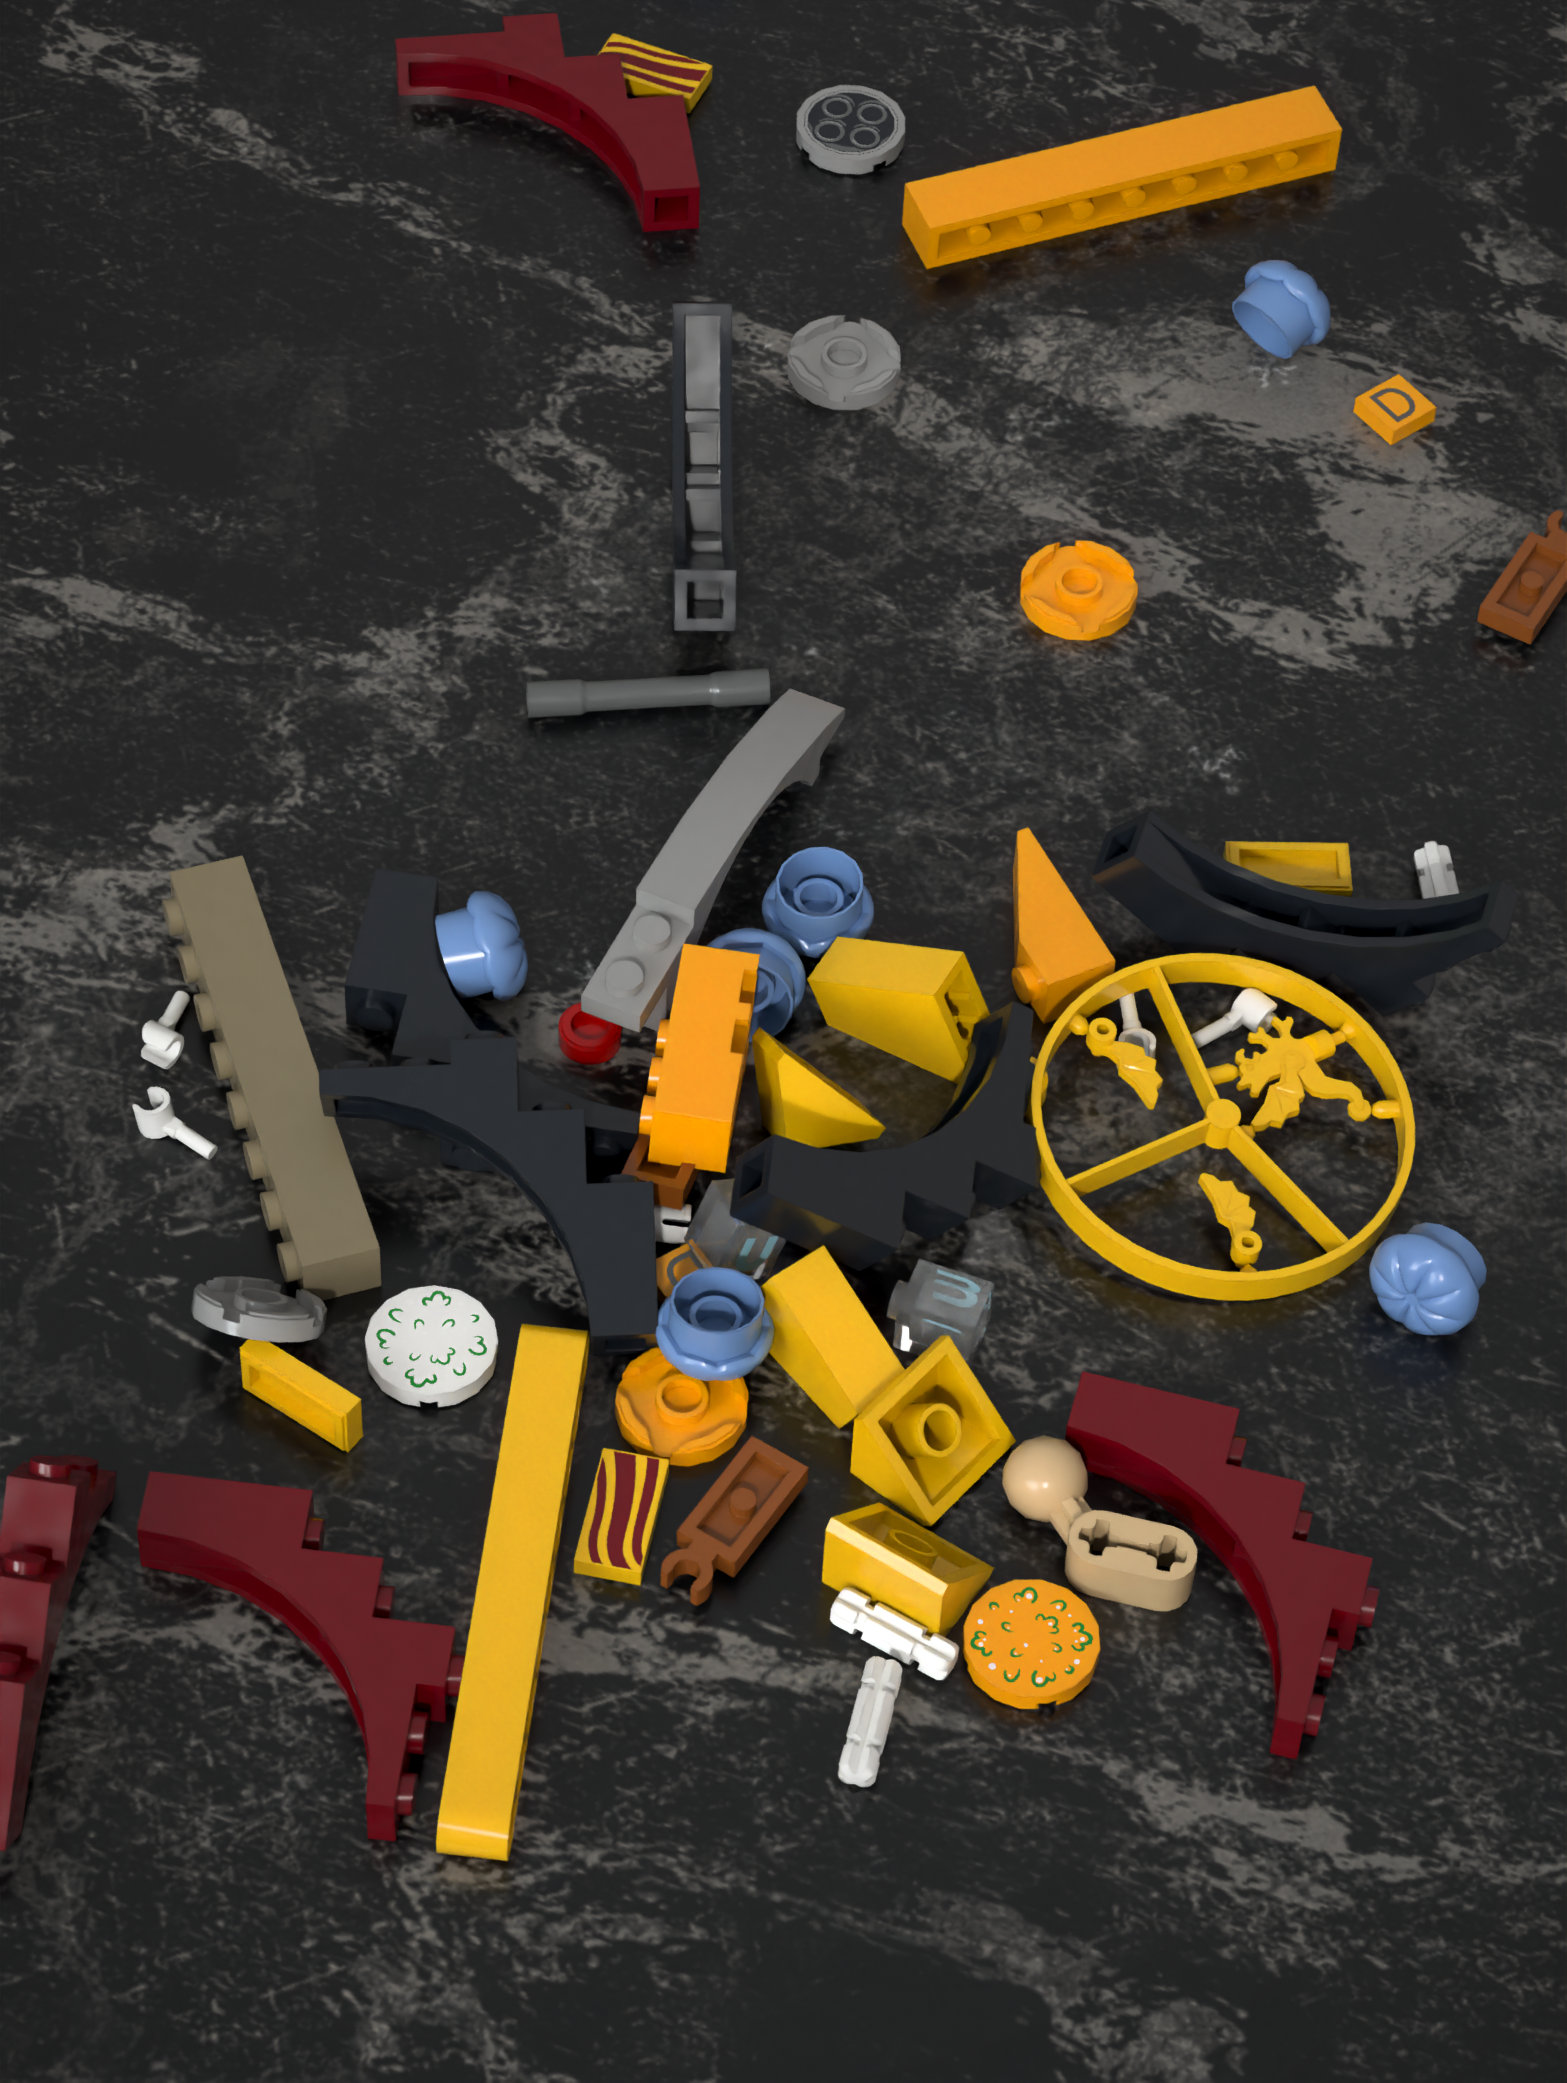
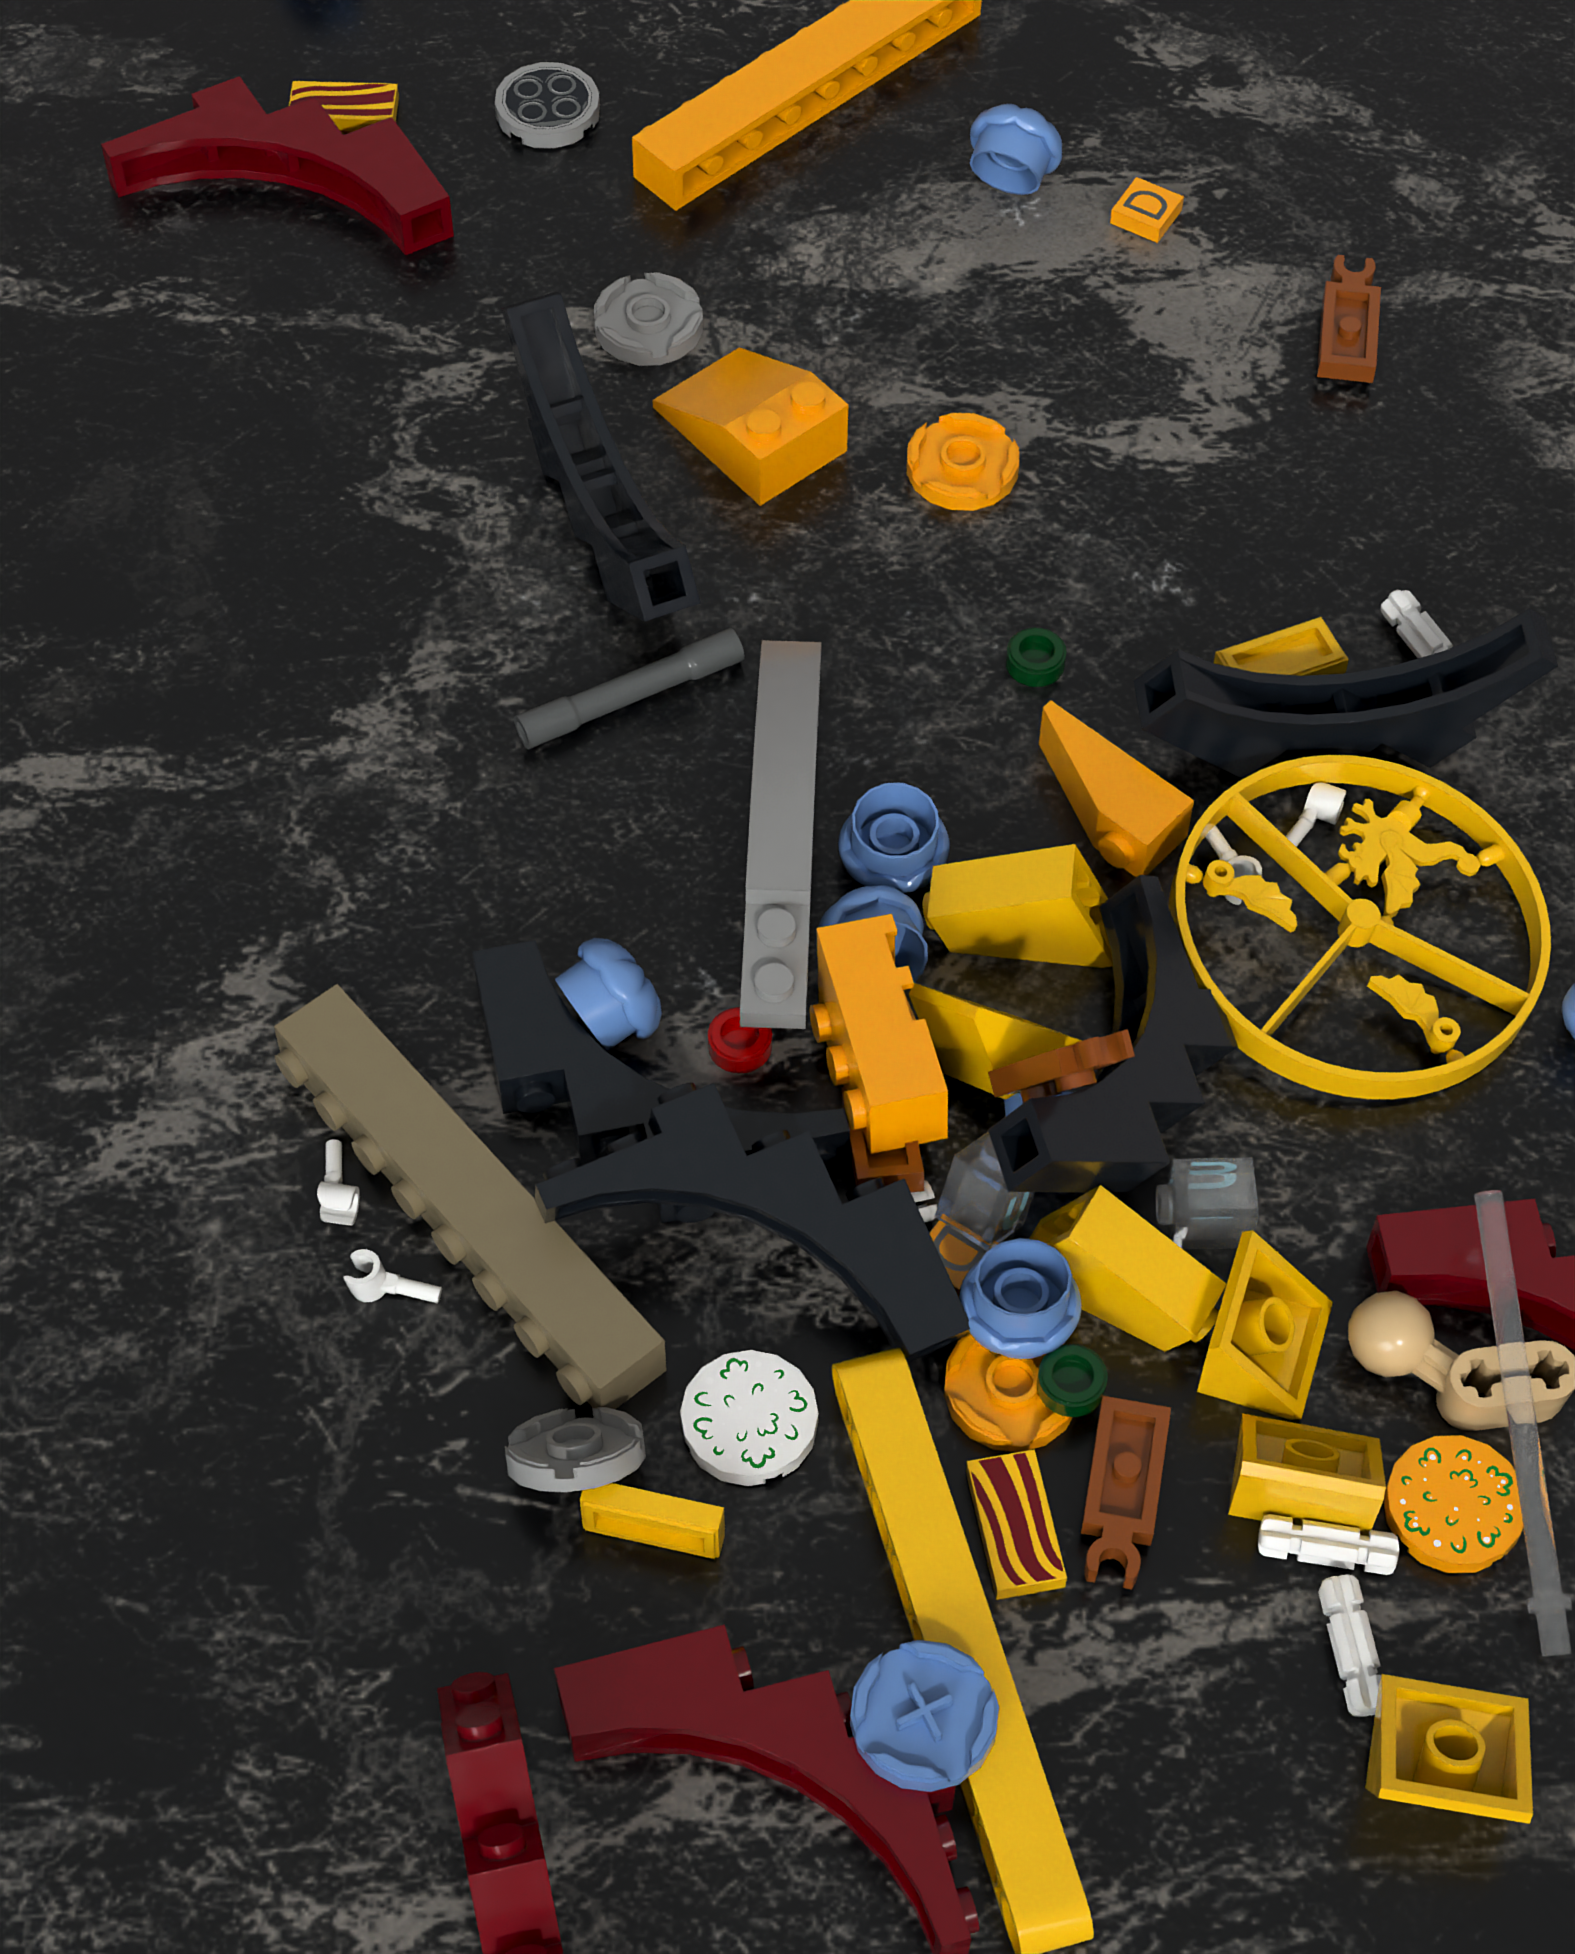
camera: 20 degrees left, 5 degrees up
(444, 1620) = (924, 1716): none -> medium blue tile
(730, 1413) = (1072, 1380): none -> dark green tile
(834, 1124) = (1061, 1068): none -> dark orange plate
(897, 491) = (759, 421): none -> light orange slope
(901, 1824) = (1451, 1749): none -> yellow slope
(1050, 791) = (1036, 657): none -> dark green tile
(1067, 1749) = (1548, 1600): none -> clear bar

